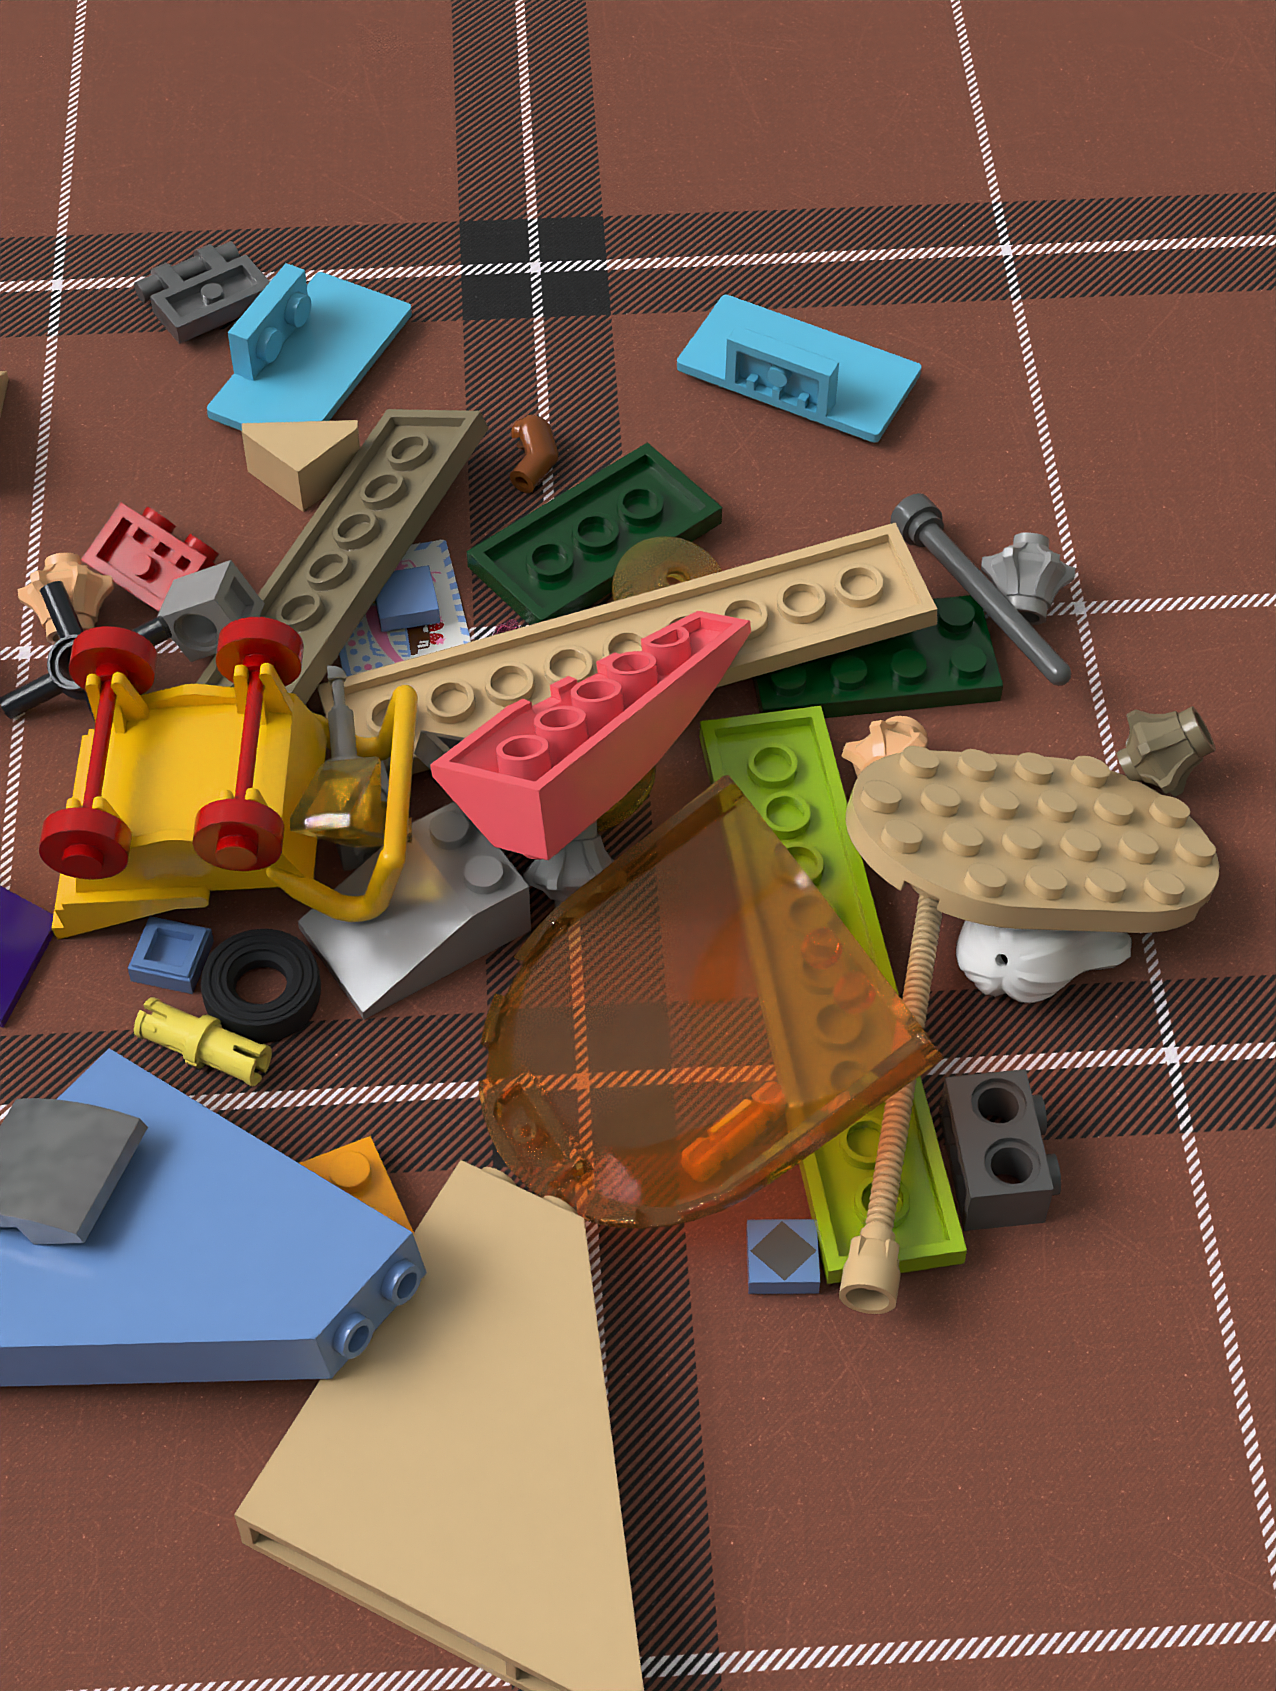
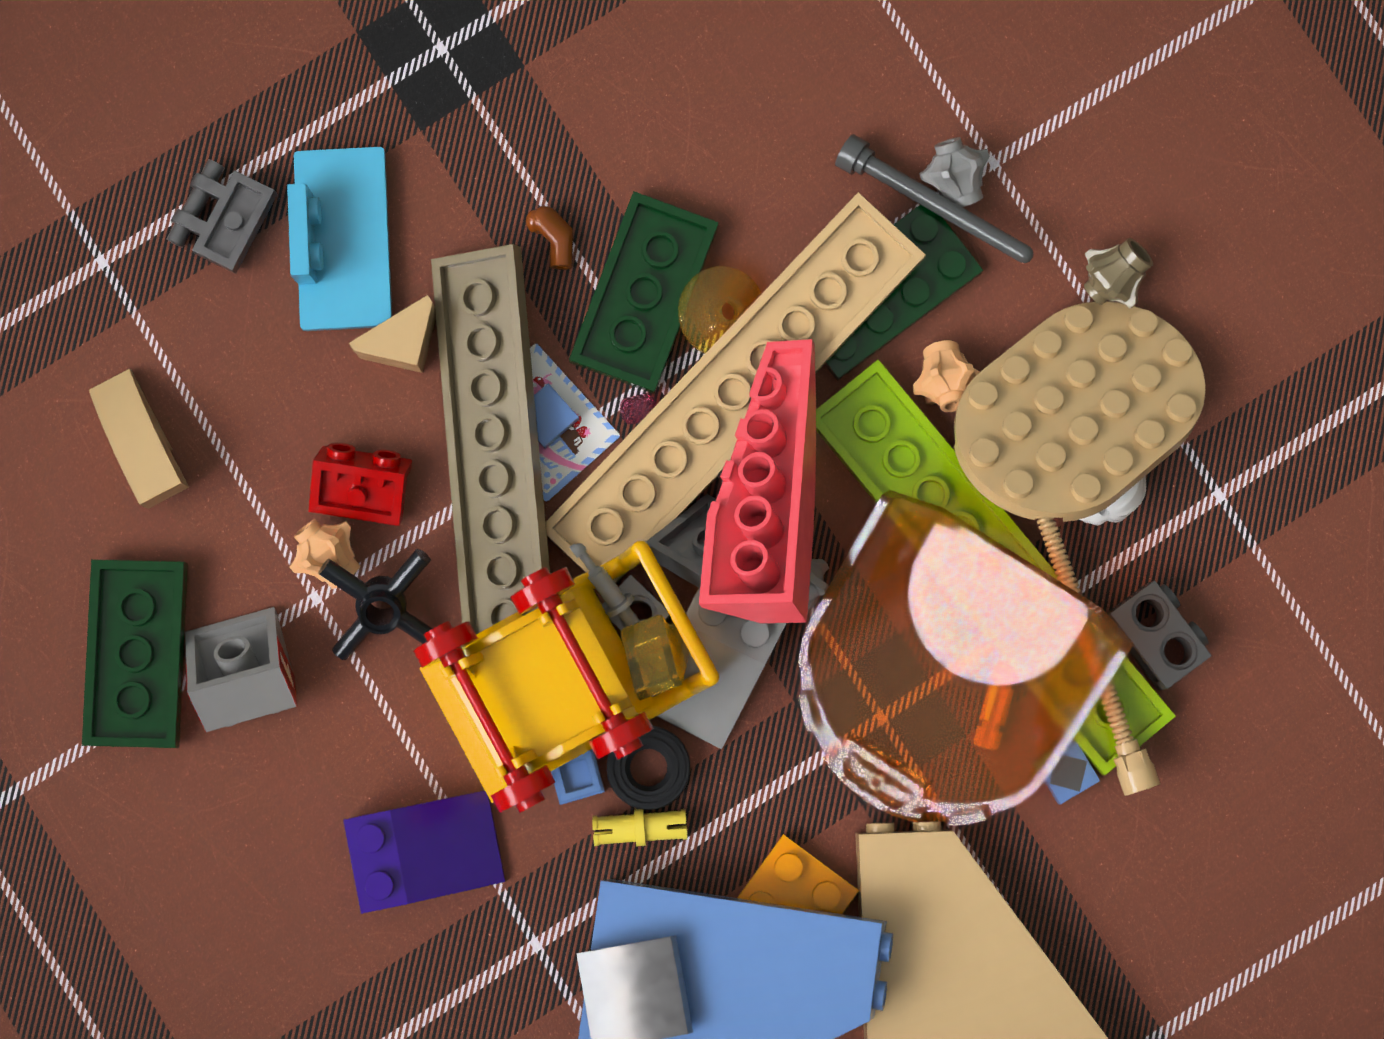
camera: 30 degrees left, 30 degrees up
(204, 604) = (435, 515): light grey brick -> none
(799, 368) = (693, 51): medium azure bracket -> none

